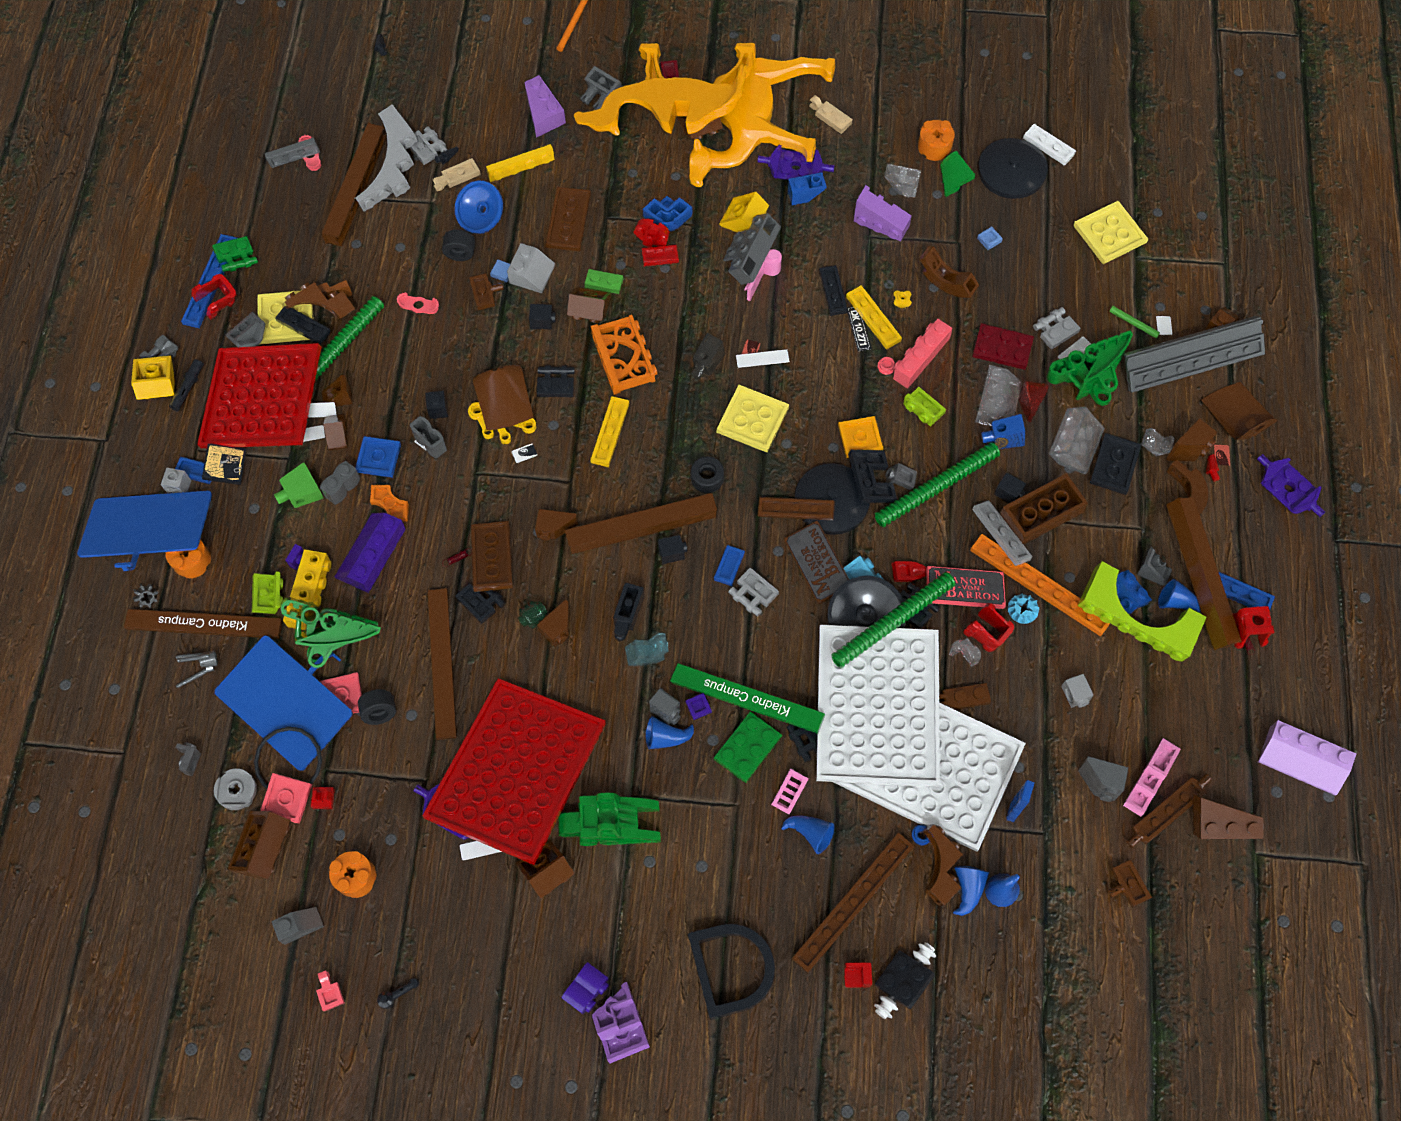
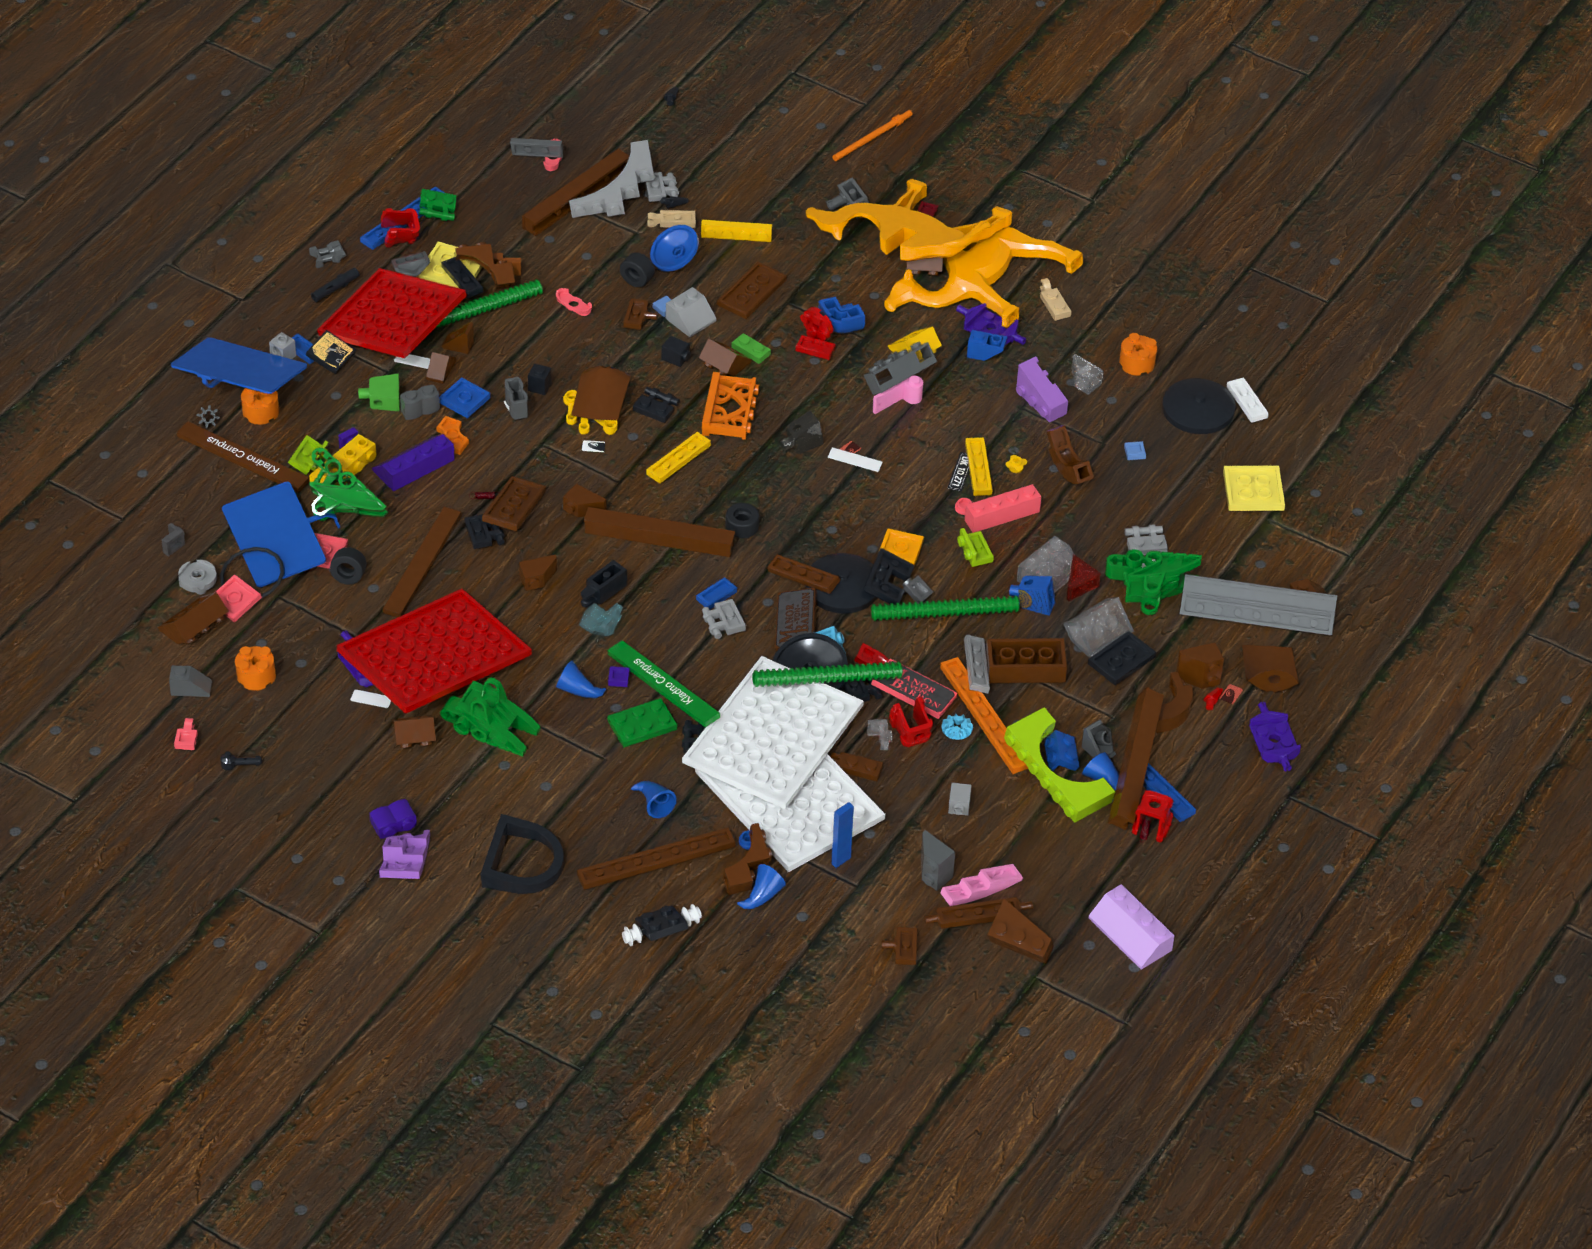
camera: 25 degrees right, 20 degrees down
(153, 377) = (310, 267): yellow slope -> none
(206, 660) = (230, 480): dark grey plant -> none
(322, 409) = (436, 345): white sticker -> none
(322, 798) = (263, 611): red tile -> none
(532, 614) = (519, 553): clear green head -> none
(544, 107) = (785, 196): medium lavender wedge -> none
(665, 707) = (588, 659): dark grey brick -> none
(672, 549) = (673, 560): black brick -> none
(752, 418) = (812, 497): light yellow plate -> none
(803, 779) = (665, 767): bright pink slope -> none
(833, 290) = (957, 434): black tile -> none
(858, 975) = (626, 905): red panel -> none
(955, 173) = (1138, 388): green slope -> none
(1002, 889) = (789, 902): blue hat -> none
(1003, 346) = (1084, 535): dark red plate -> none
(1010, 488) = (1008, 630): black brick -> none
(1135, 322) = (1222, 561): bright green bar -> none
(1157, 443) = (1169, 655): clear bracket -> none
(1164, 325) = (1253, 577): white sticker -> none

